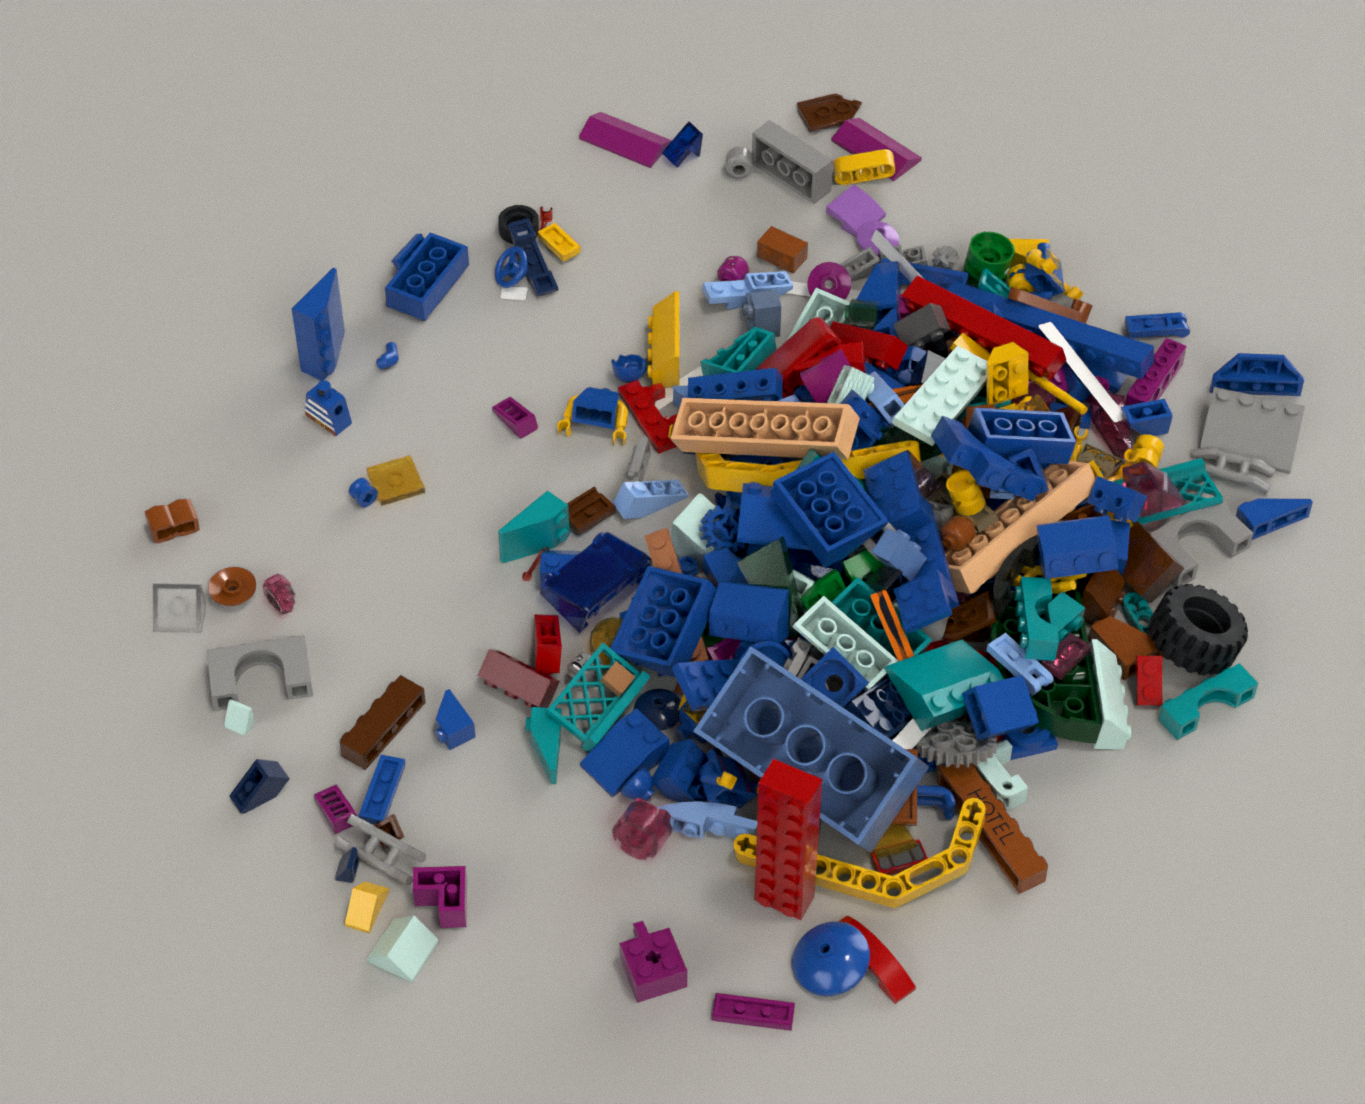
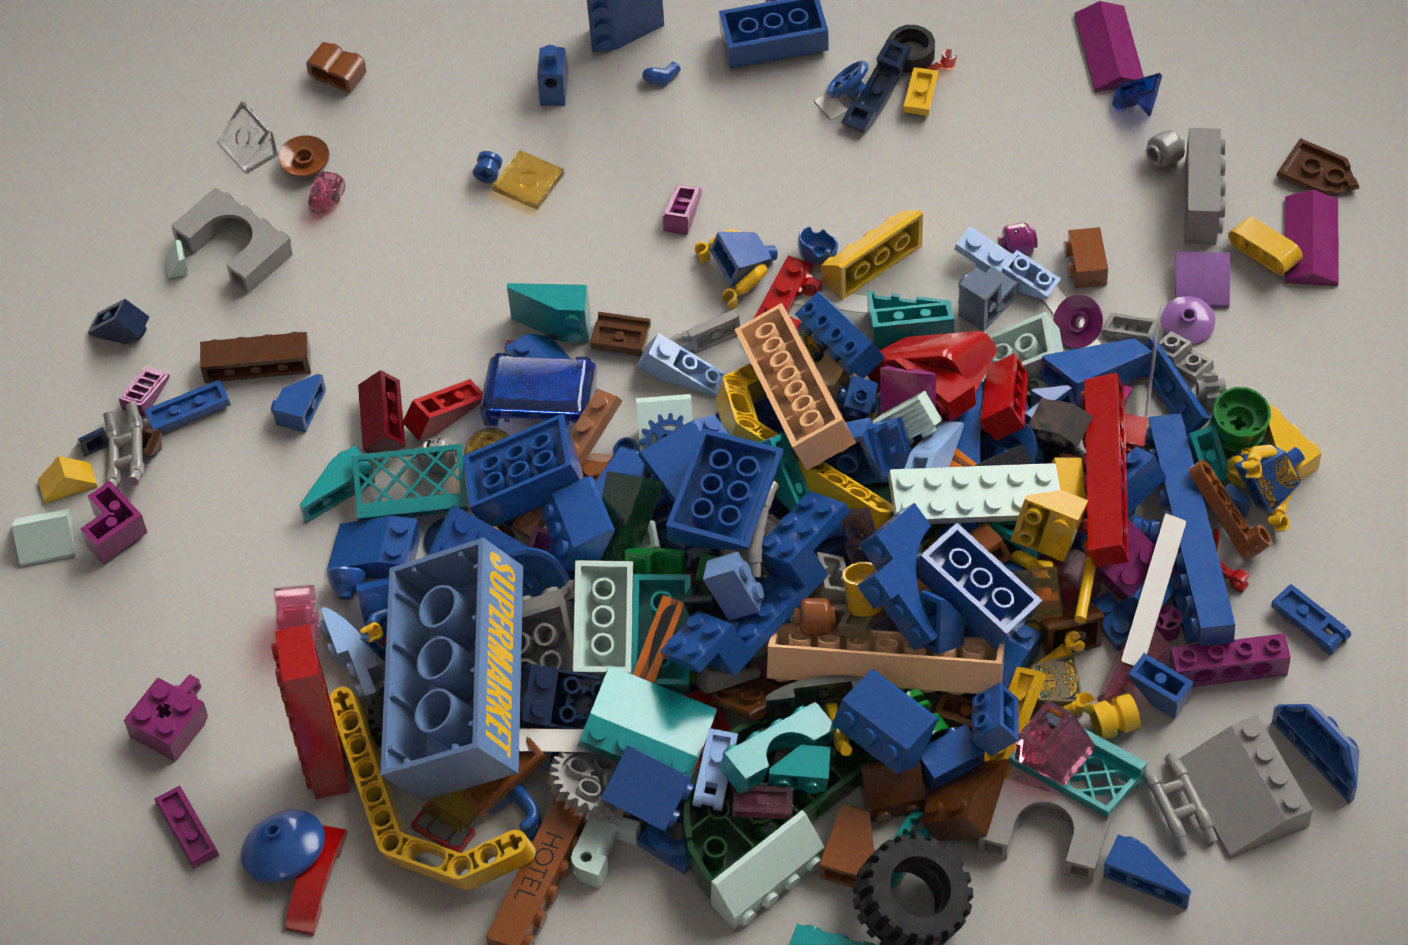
camera: 55 degrees right, 5 degrees up
(617, 678) = (436, 483): medium nougat tile -> none
(835, 664) = (535, 627): blue piece -> none
(862, 313) = (1040, 366): clear green brick -> none
(1149, 681) = (824, 895): red plate -> none

